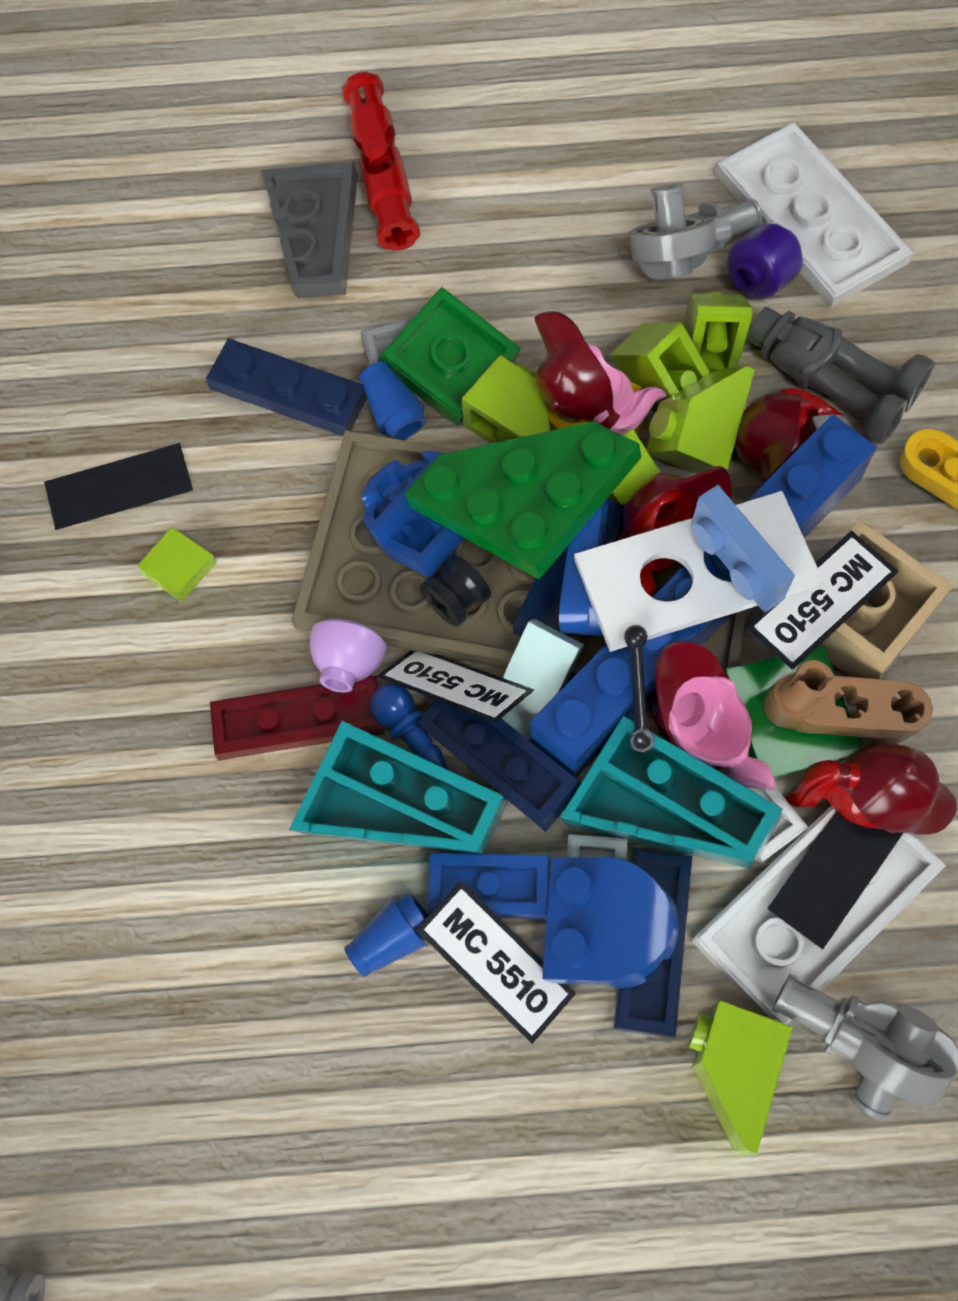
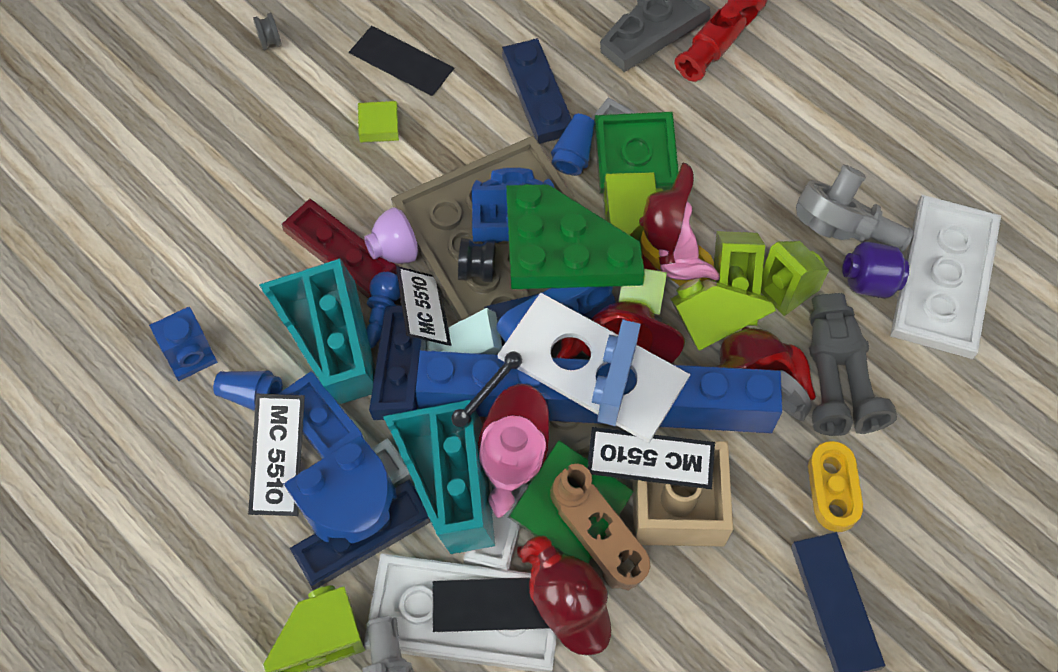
camera: 45 degrees right, 5 degrees down
(277, 965) = (183, 343): none -> blue brick

